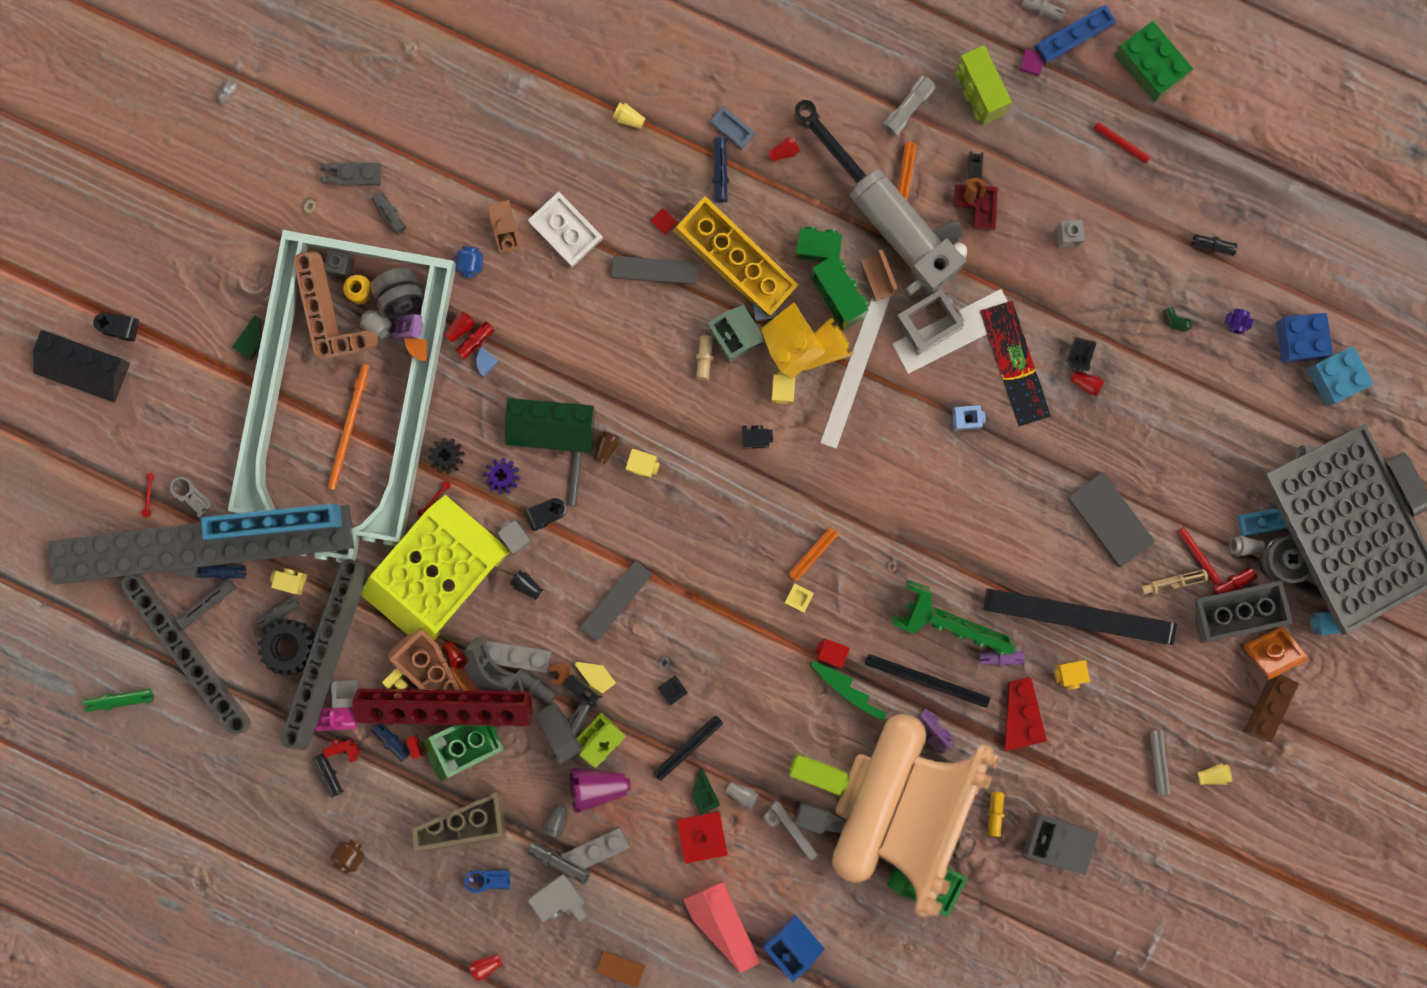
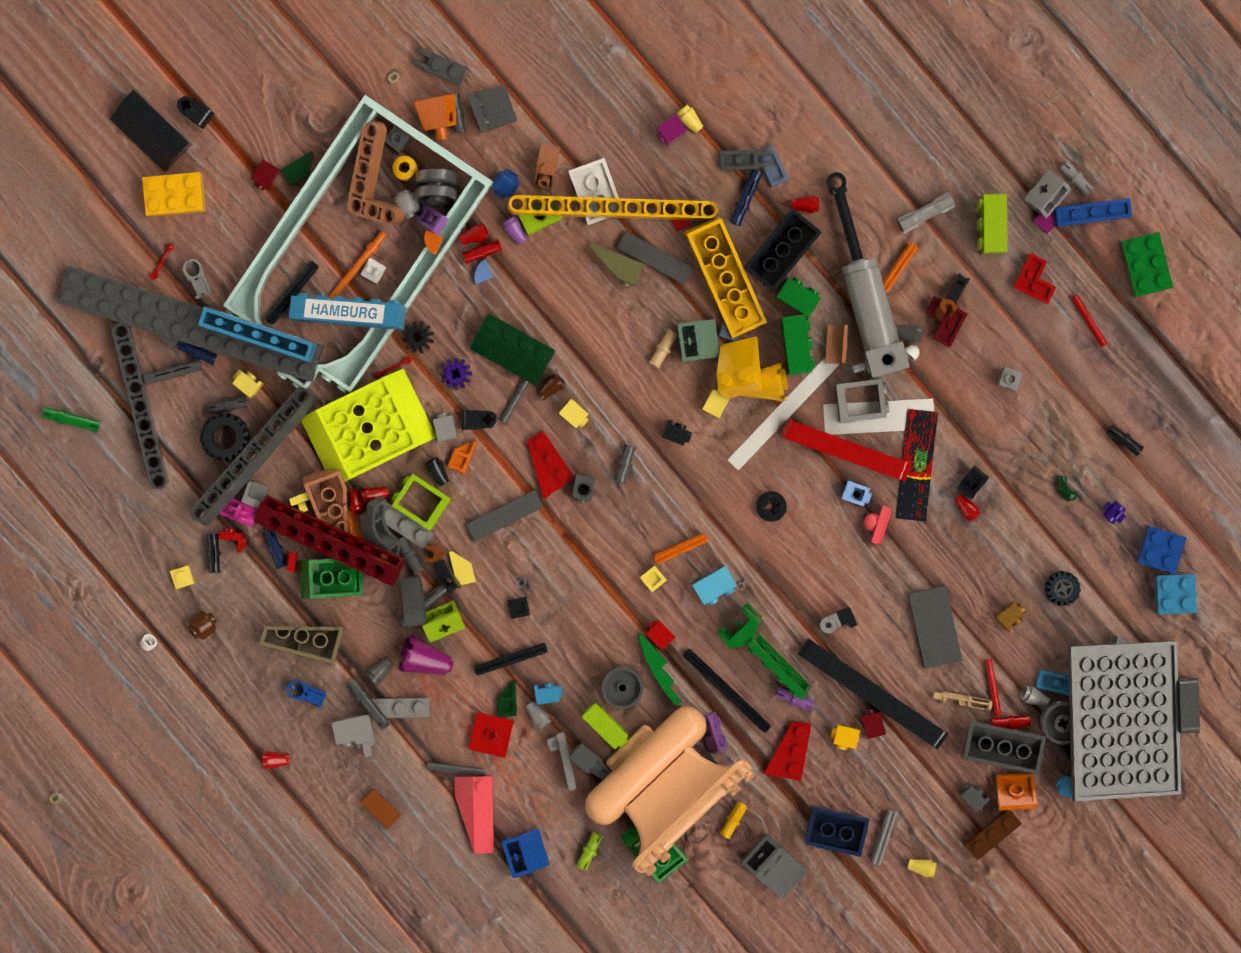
camera: 25 degrees right, 5 degrees up
(130, 420) = (174, 194): none -> yellow brick
(218, 359) = (265, 175): none -> dark red brick
(296, 467) = (293, 290): none -> black axle
(300, 899) = (148, 642): none -> white hinge
(305, 815) = (182, 577): none -> light yellow plate
(360, 460) = (347, 312): none -> dark azure brick
(368, 220) = (437, 114): none -> orange torso
(371, 409) = (373, 270): none -> white tile
(423, 192) = (492, 108): none -> dark grey bracket
(467, 637) = (372, 493): none -> red cone
(499, 303) = (514, 229): none -> medium lavender cone
(517, 290) = (533, 225): none -> lime brick
(545, 625) = (398, 496): none -> lime window
(546, 559) = (461, 456): none -> orange tile
(582, 244) = (621, 203): none -> yellow beam
(614, 133) = (671, 131): none -> magenta brick
(625, 293) = (621, 267): none -> olive slope
(639, 528) = (548, 464): none -> red wing
(681, 527) = (583, 480): none -> dark grey brick
(682, 890) = (455, 769): none -> dark grey bar
(701, 131) = (744, 159): none -> dark grey hinge
(717, 492) = (625, 464): none -> dark grey pin
(743, 766) = (548, 693): none -> dark azure brick
(781, 204) = (782, 250): none -> black slope
(806, 719) = (611, 690): none -> dark grey wheel
(860, 914) = (589, 850): none -> lime pin
(866, 576) = (715, 585): none -> medium azure brick
(897, 470) = (766, 514): none -> black gear
(937, 378) = (846, 450): none -> red beam
(1000, 439) = (878, 524): none -> coral tile
(1008, 555) = (831, 622): none -> leg
(1022, 33) = (1047, 194): none -> light grey brick
(1044, 129) = (1029, 282): none -> red plate
(1094, 648) = (873, 723): none -> dark red brick
(1109, 777) = (836, 830): none -> dark blue brick
(1183, 473) = (1011, 615): none -> pearl gold brick
(1229, 425) = (1068, 585): none -> black wheel
(1233, 677) = (973, 796): none -> dark grey brick

